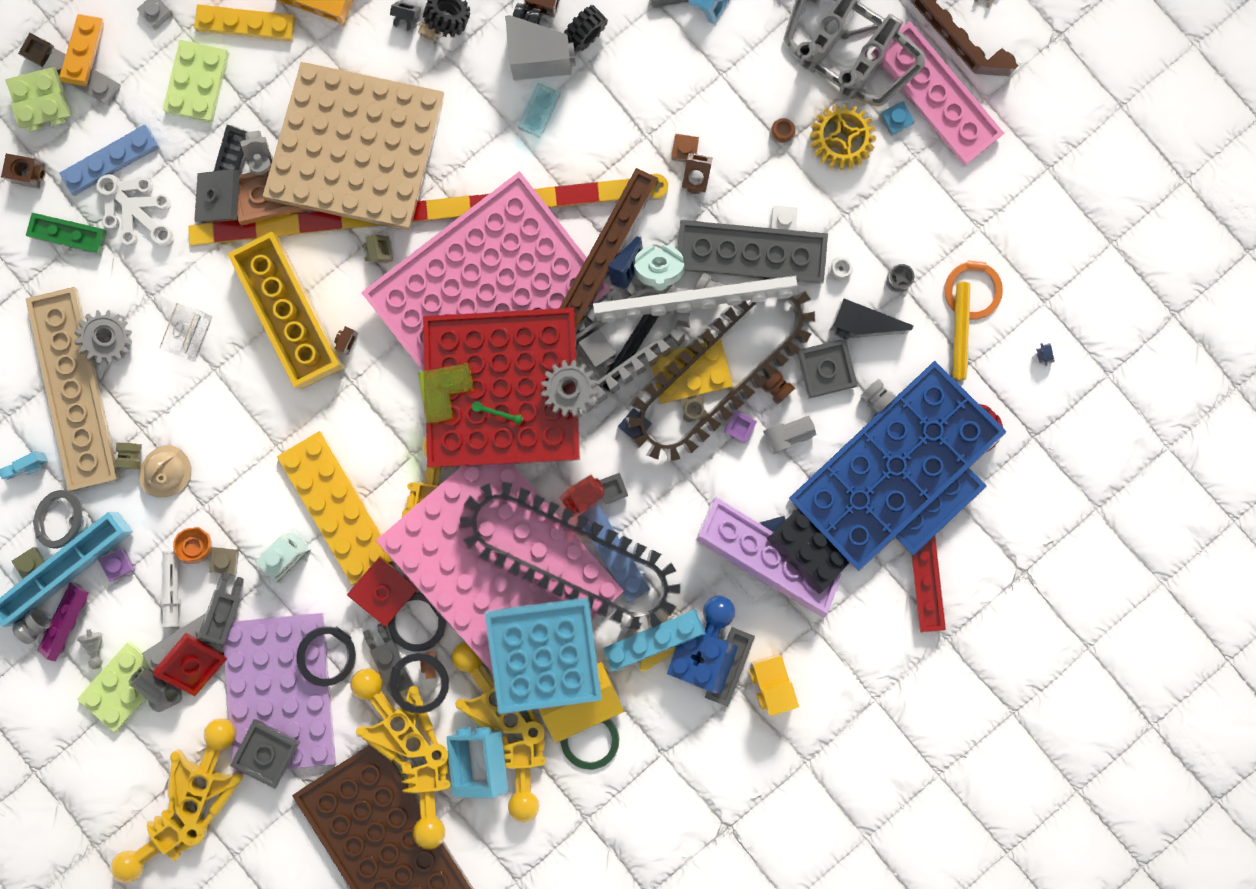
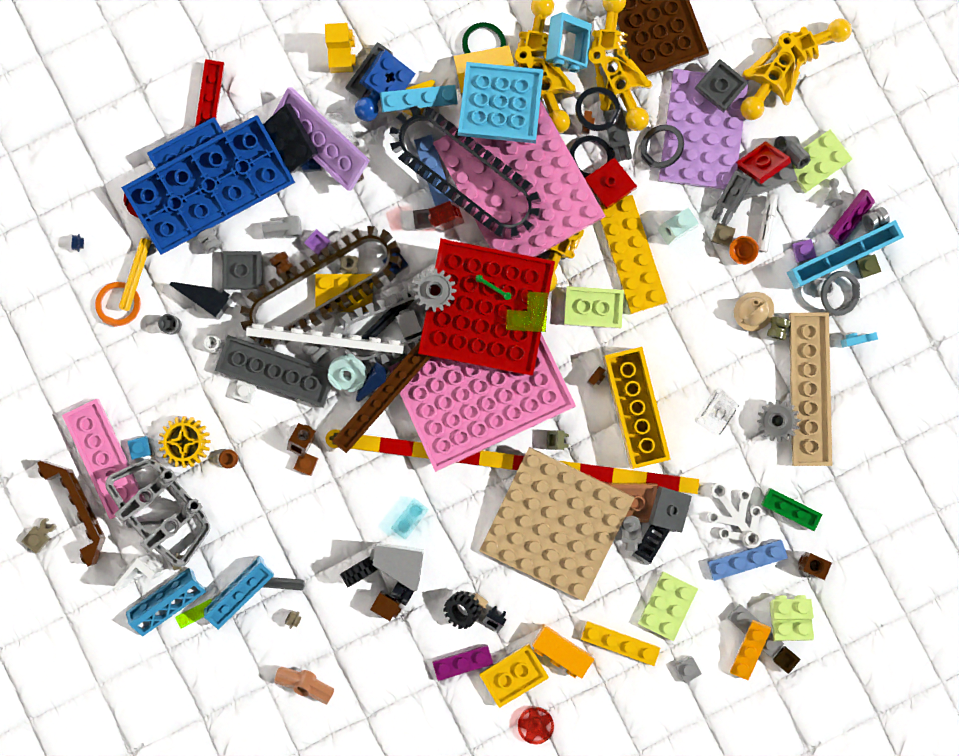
camera: 165 degrees left, 0 degrees up
(368, 427) = (593, 307): none -> yellowish green plate

